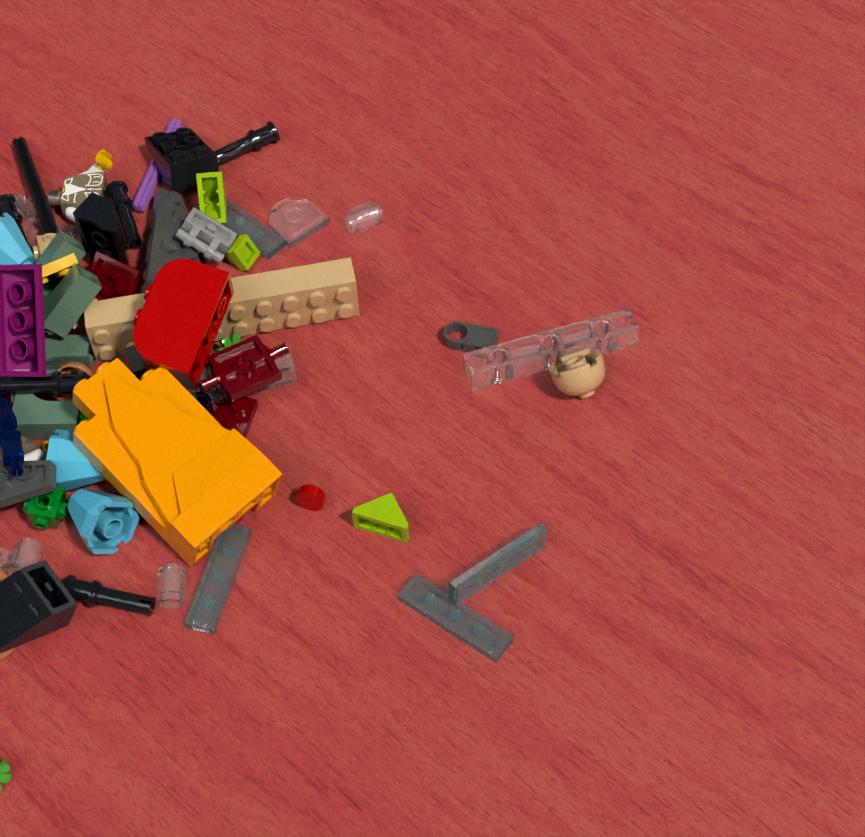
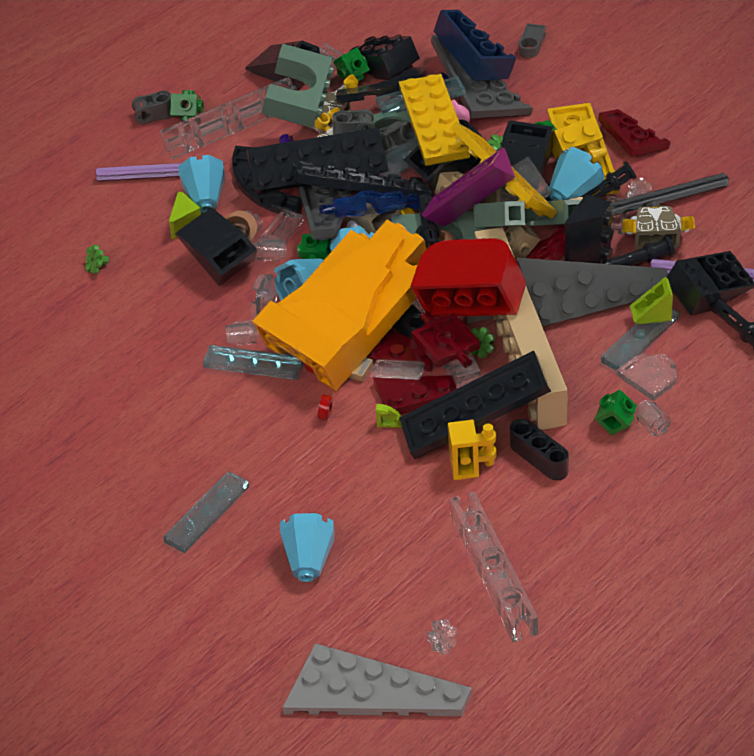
camera: 90 degrees right, 10 degrees down
(94, 593) = (239, 292): black pin -> none
(127, 557) = (265, 293): none -> clear tile
(209, 231) = (617, 310): light grey plate -> none
(243, 253) = (597, 337): lime tile -> none
(264, 427) = (398, 369): none -> clear tile
(293, 419) = (411, 394): none -> dark red wing
(333, 440) = (387, 417): none -> lime tile
(349, 344) = (477, 401): none -> black plate
(356, 241) = (615, 412): none -> green brick
(382, 518) = (301, 456): lime slope -> none
(397, 307) = (539, 449): none -> black beam
(401, 358) = (464, 448): none -> yellow brick
(476, 336) = (506, 513): dark grey piece -> none
(497, 564) = (249, 529): clear light blue tile -> none
(527, 505) = (307, 544): none -> medium azure cone
(579, 373) = (456, 580): tan cylinder -> none
(641, 394) = (442, 636): none -> clear plant
(700, 466) = (369, 687): none -> light grey wing

